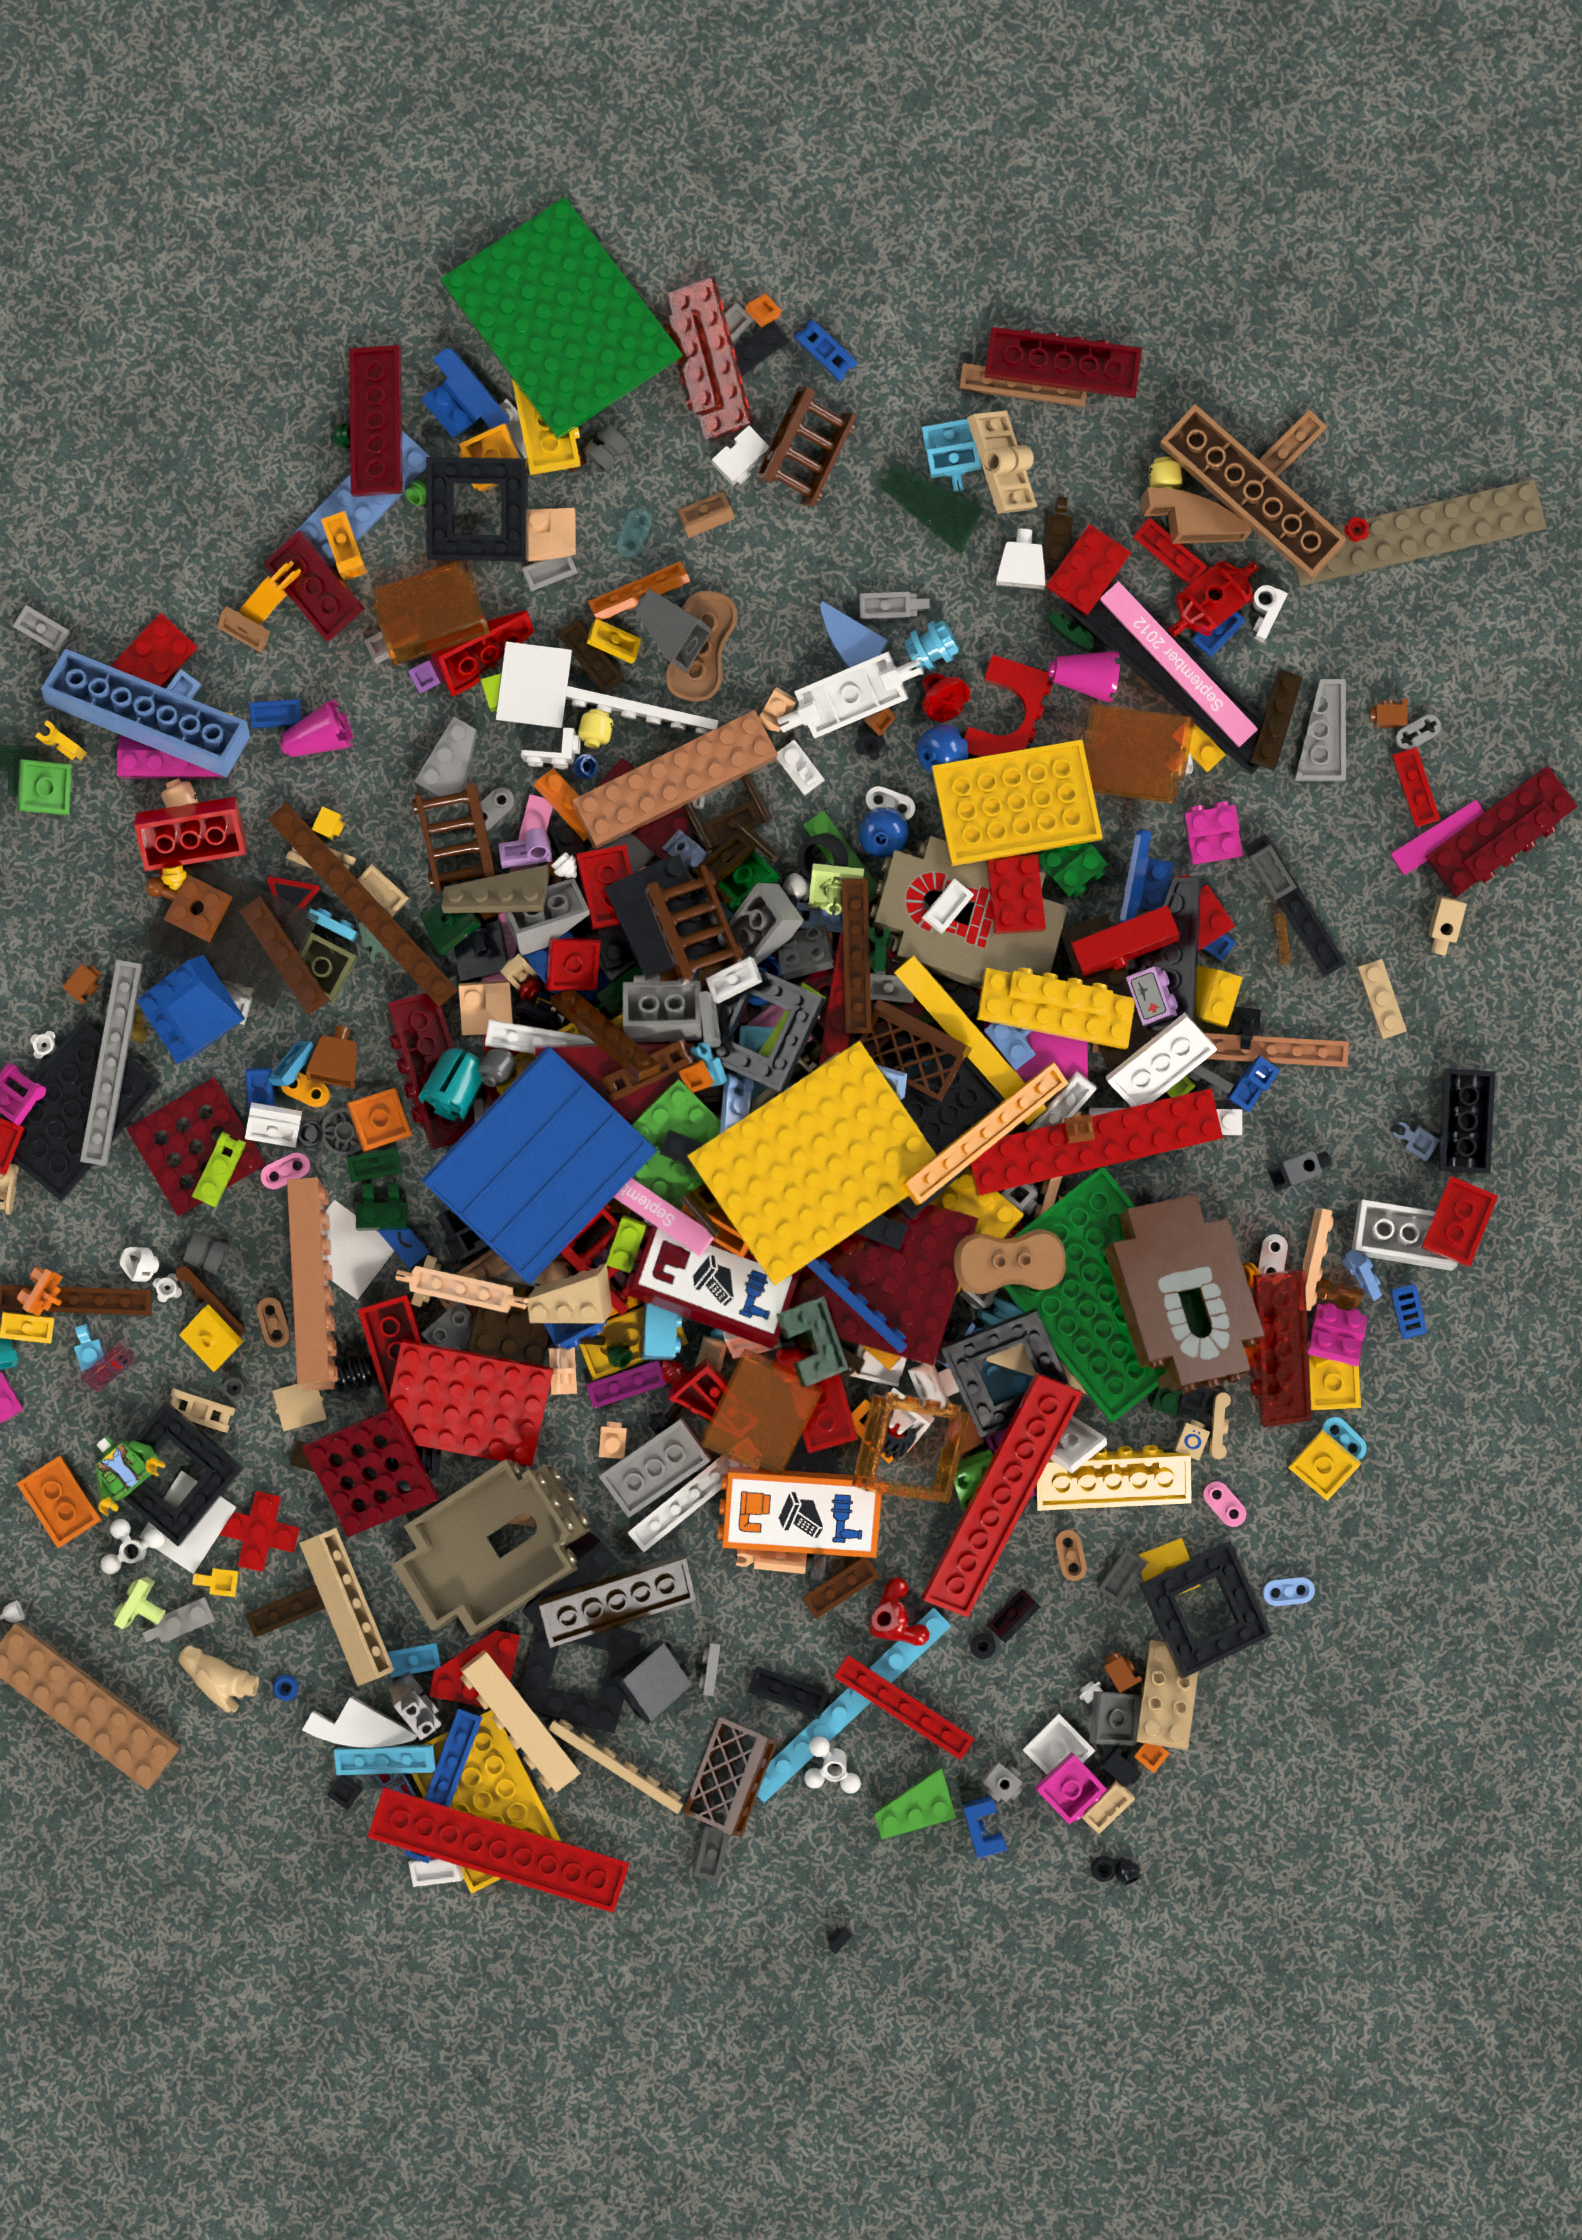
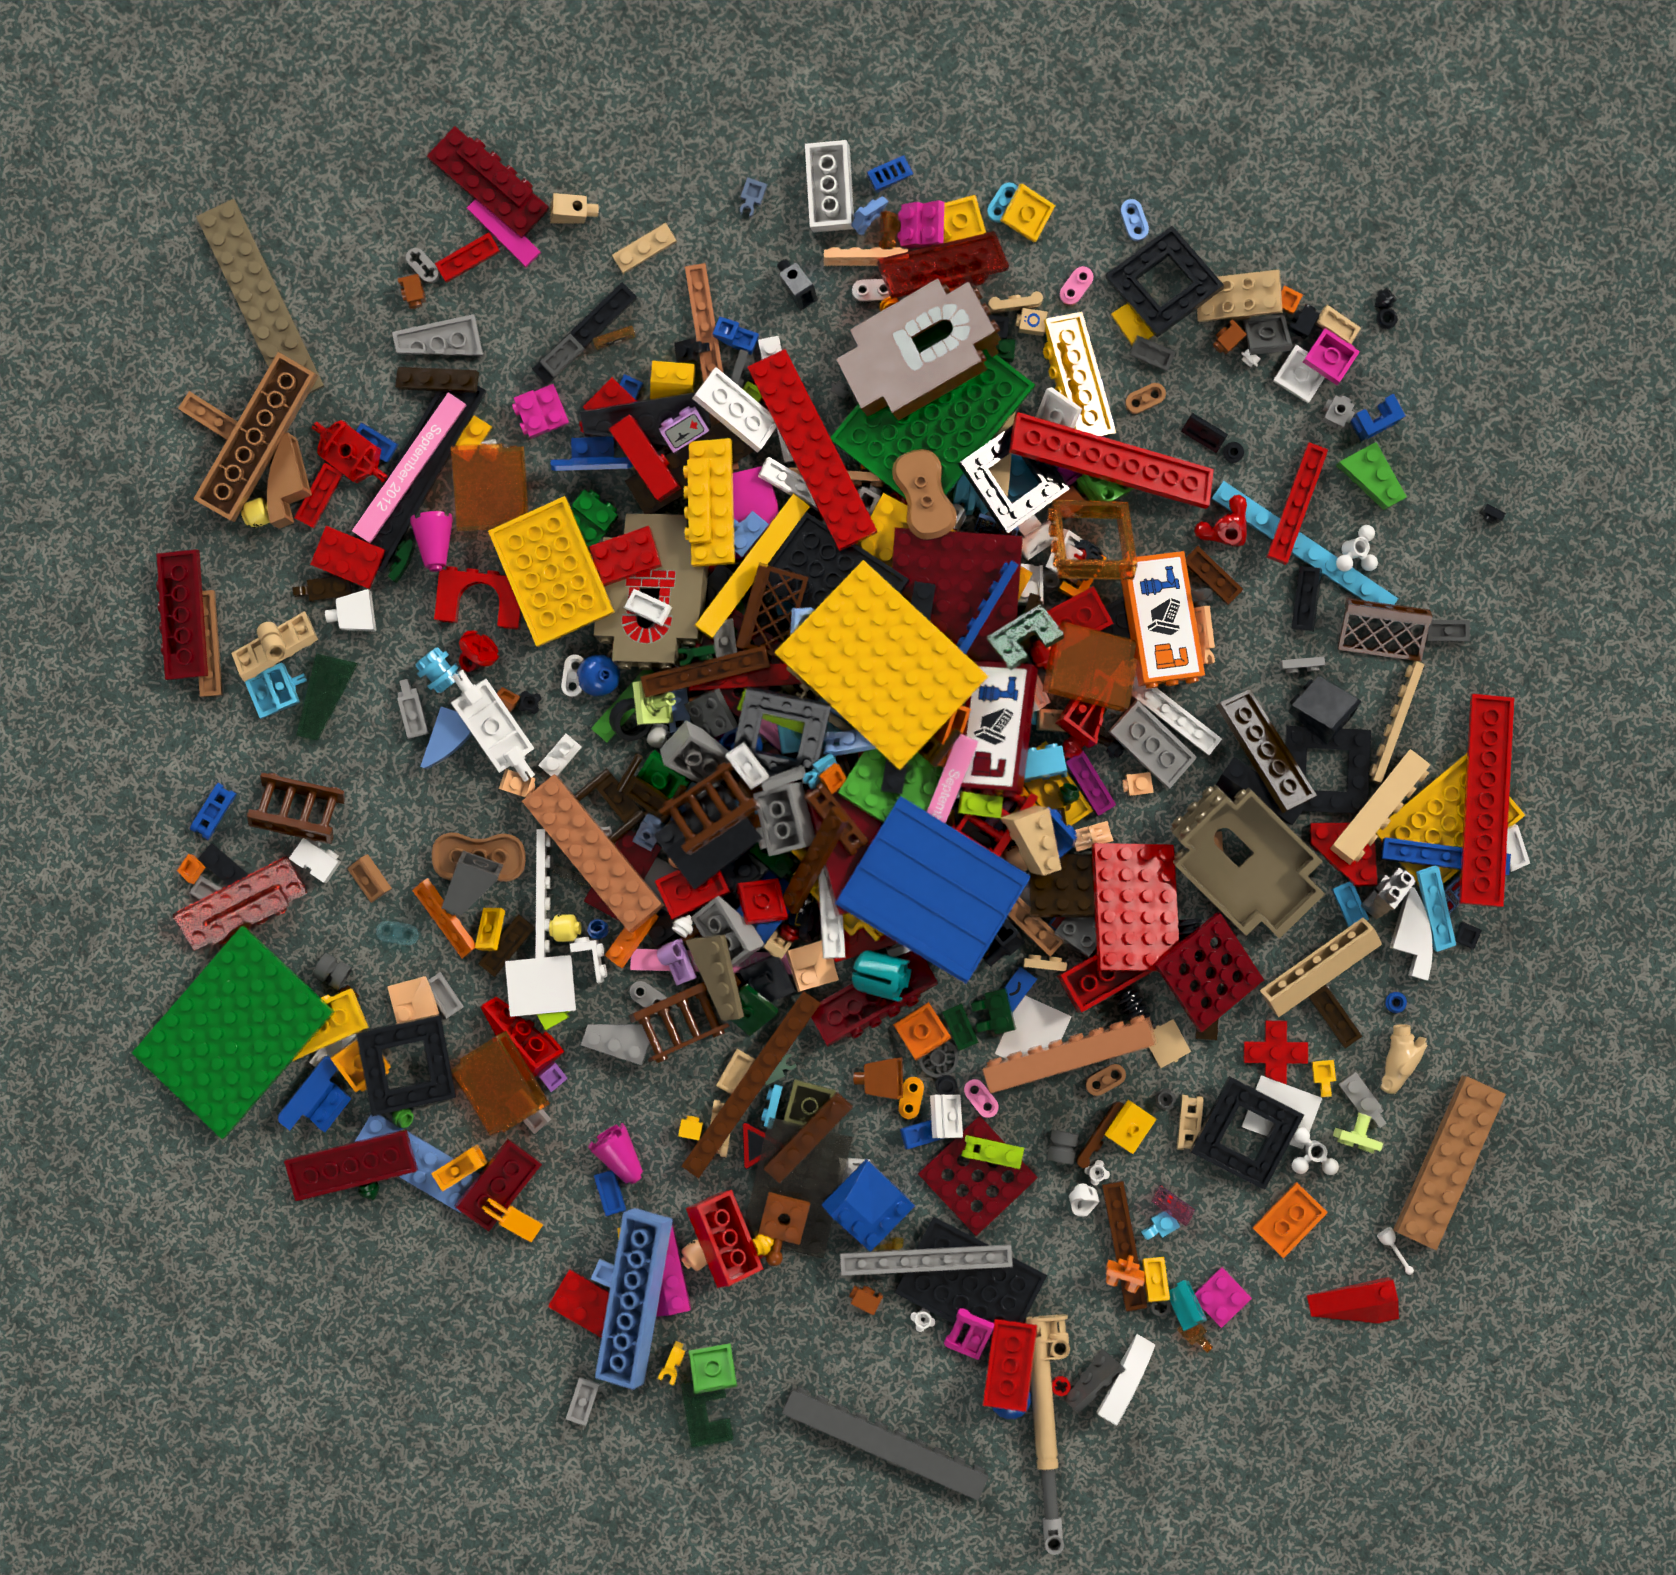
camera: 105 degrees left, 0 degrees up
(123, 1470) = (1254, 1173): torso -> none
(243, 629) = (546, 1234): medium nougat plate -> none
(291, 1064) = (893, 1112): dark azure plate -> none
(461, 1289) = (1046, 931): light nougat plate -> none
(497, 1067) = (860, 942): dark grey head -> none
(941, 746) = (518, 643): blue cylinder -> none
(984, 1133) = (826, 535): light orange plate -> none
(1079, 1128) = (804, 462): dark orange tile -> none
(1270, 611) = (362, 406): white plate -> none
(1359, 523) = (263, 344): red plate -> none
(1459, 1221) = (810, 145): red plate -> none
(1466, 1121) = (728, 158): black brick -> none

